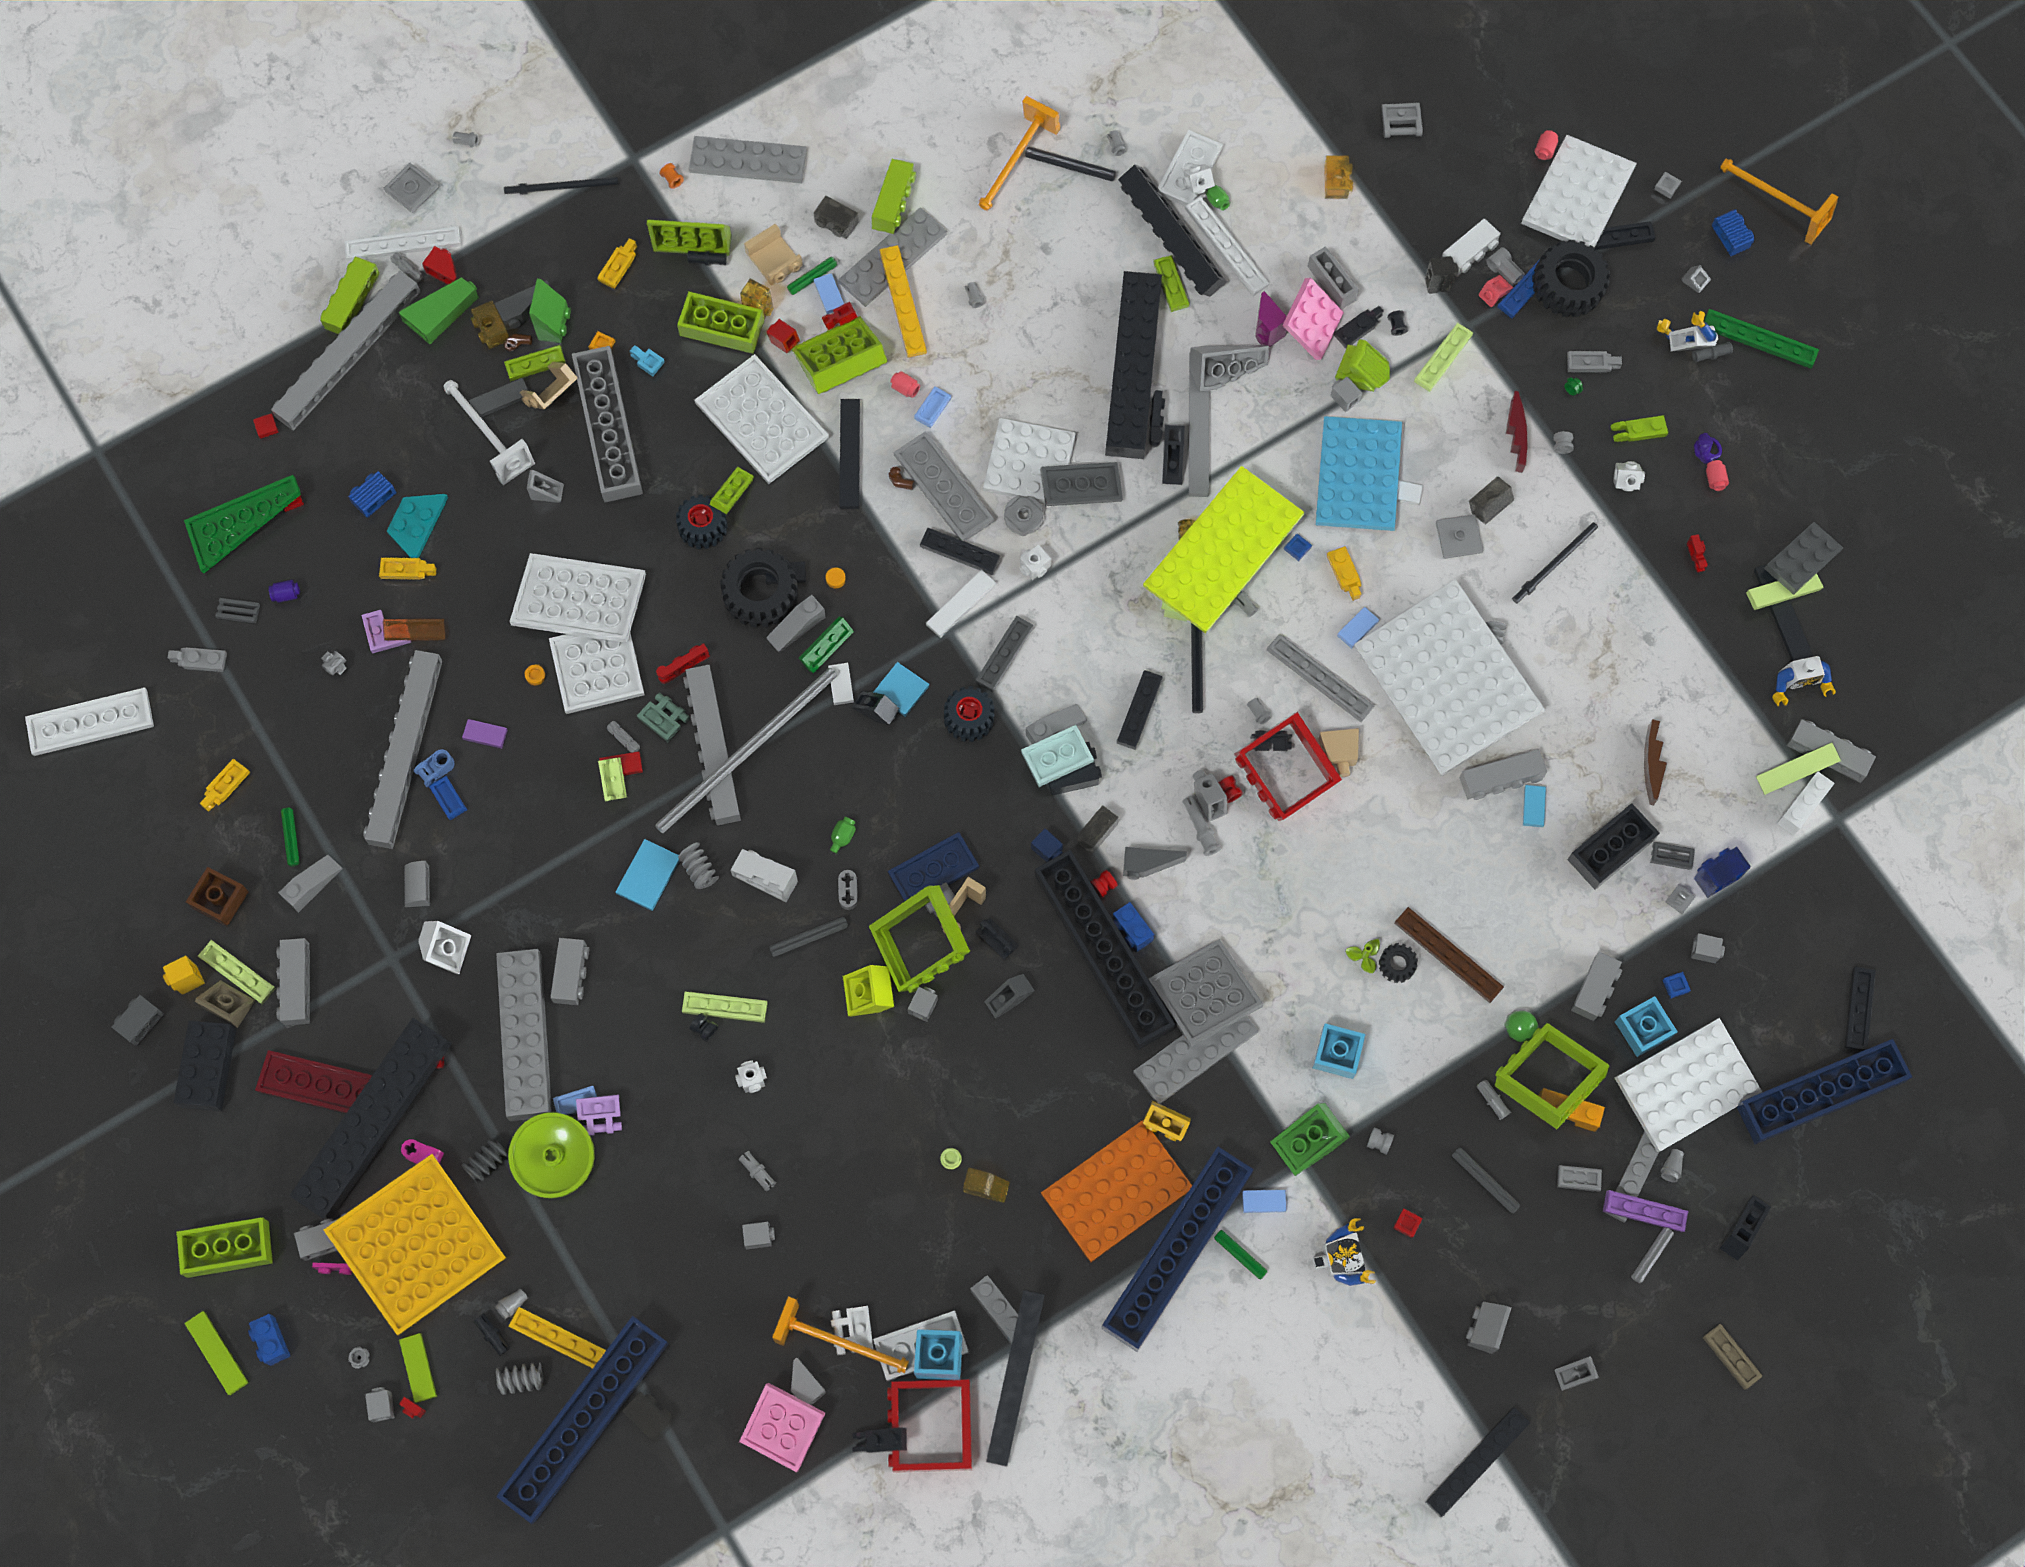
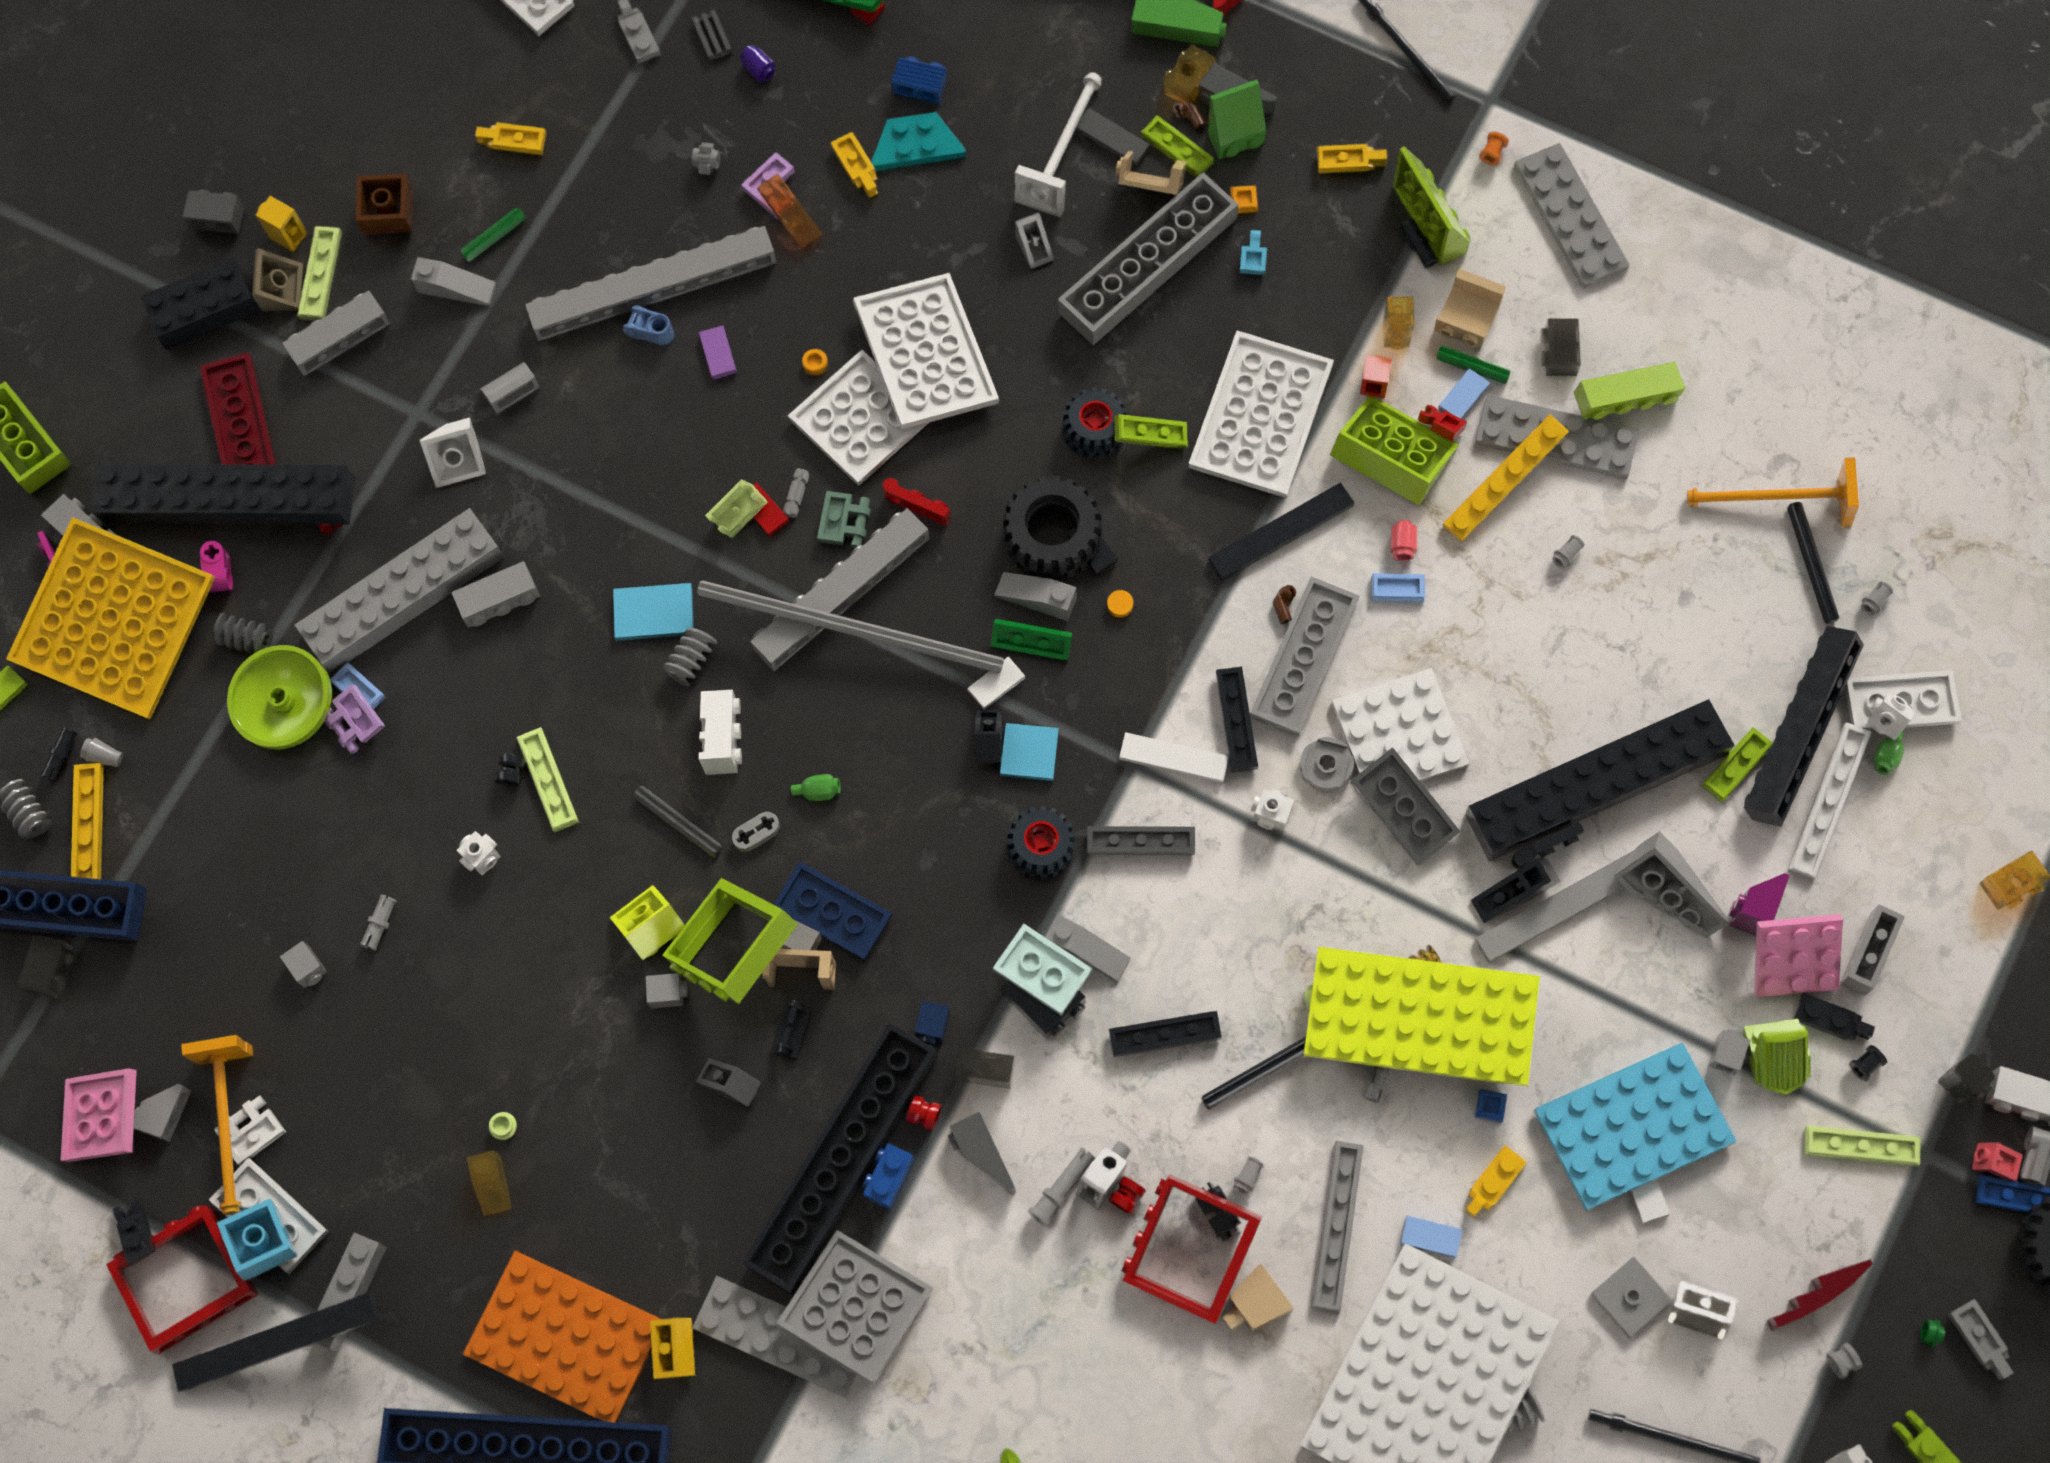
camera: 65 degrees right, 0 degrees up
(447, 798) = (624, 359): blue tile -> none
(720, 322) = (1347, 302): lime brick -> none

